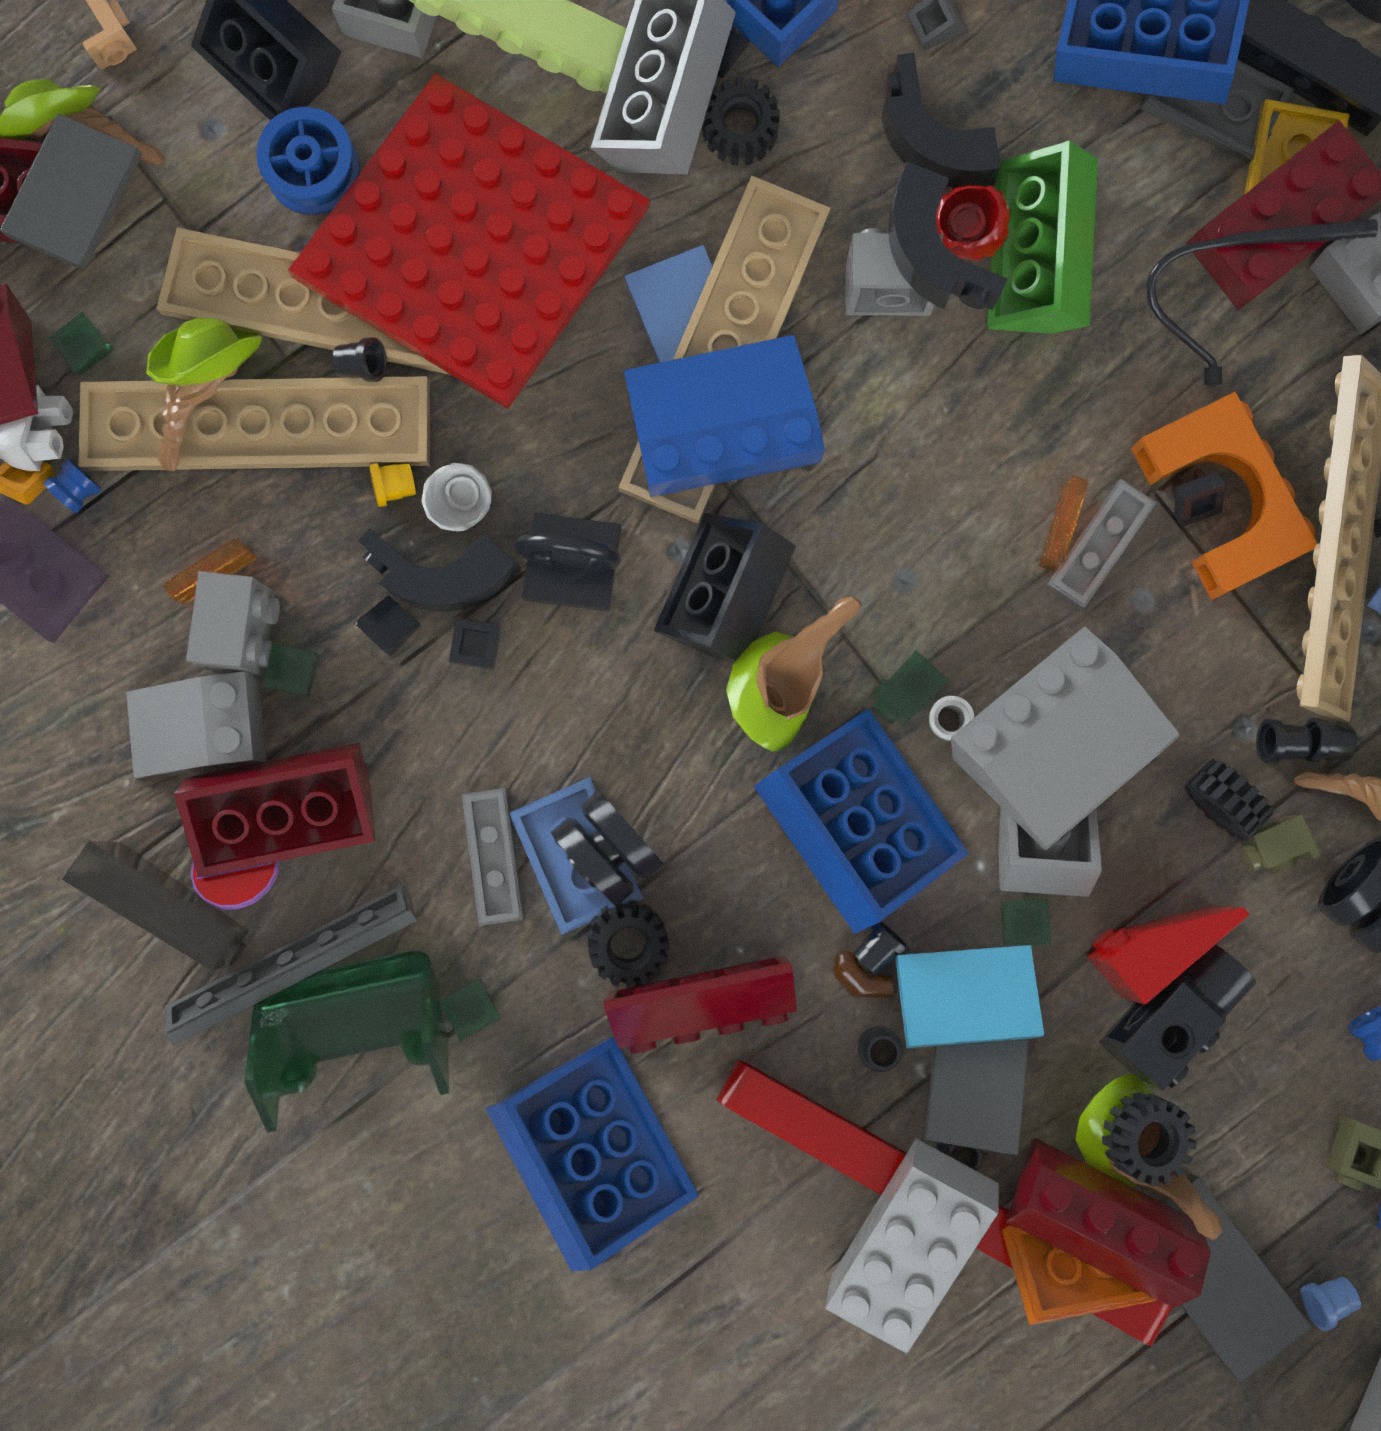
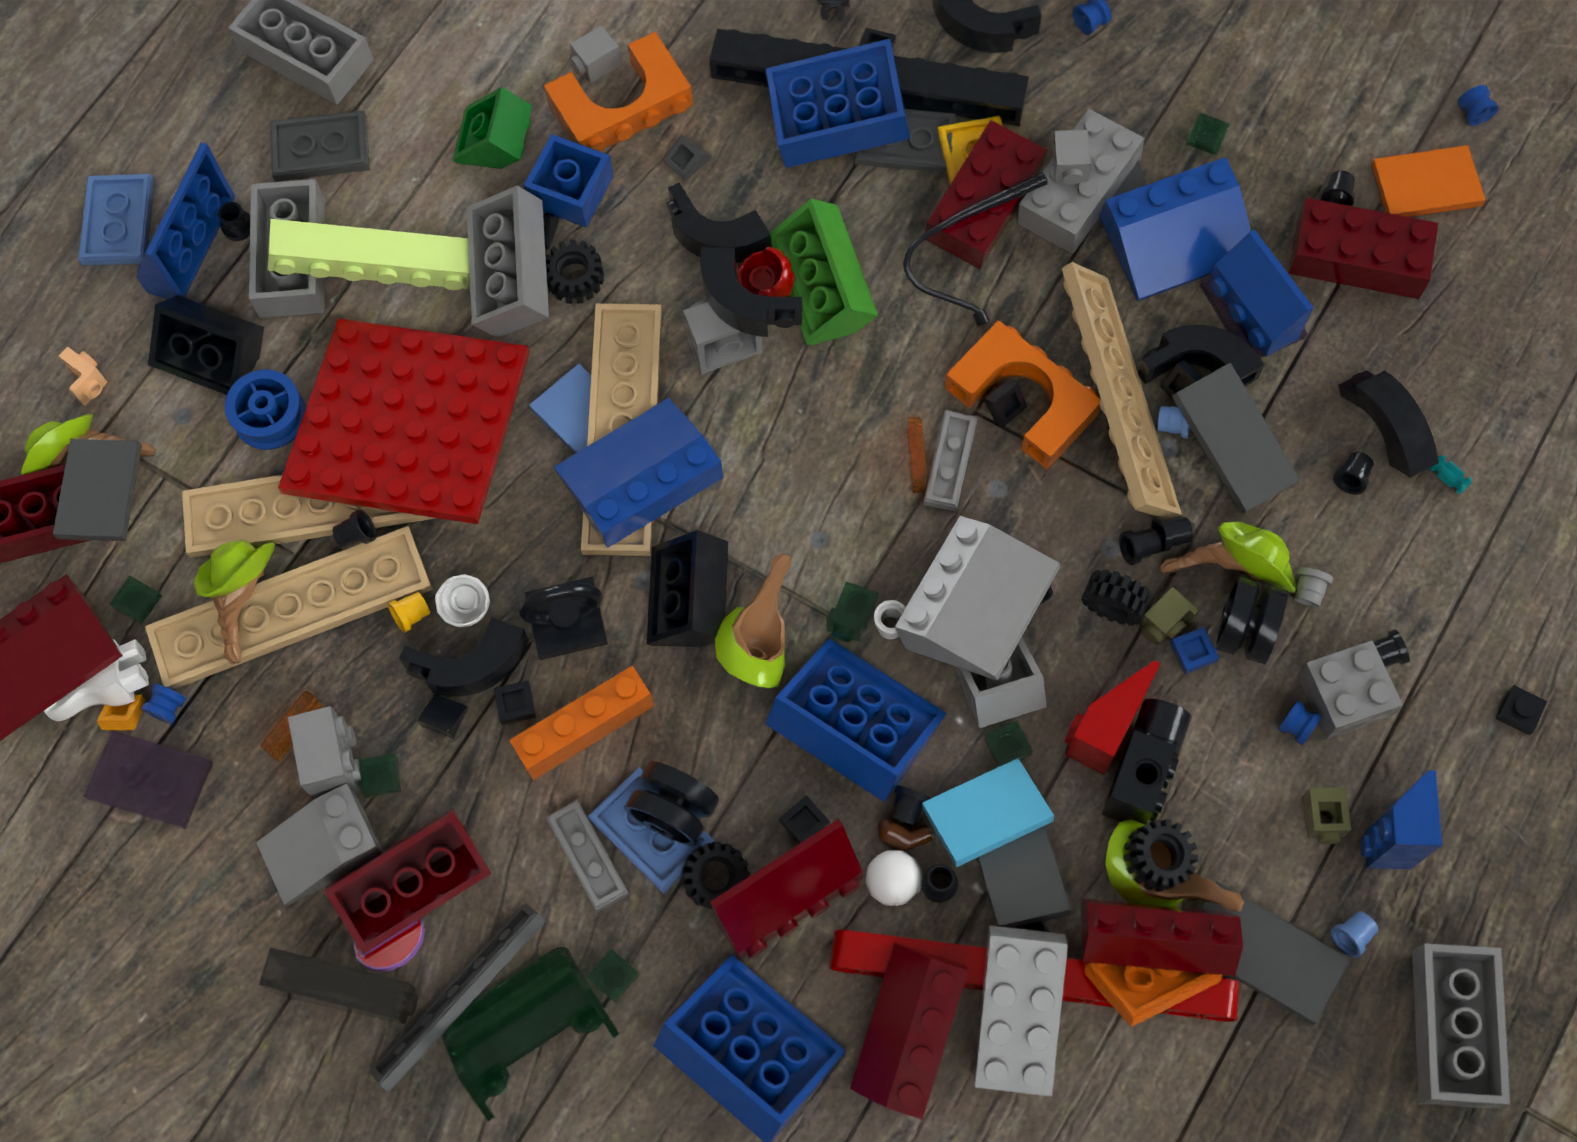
camera: 20 degrees left, 15 degrees down
(541, 701) = (582, 722): none -> orange brick
(754, 918) = (804, 820): none -> black plate
(778, 1214) = (909, 1030): none -> dark red slope
(830, 1023) = (894, 878): none -> white hair
(1291, 896) = (1194, 650): none -> blue plate

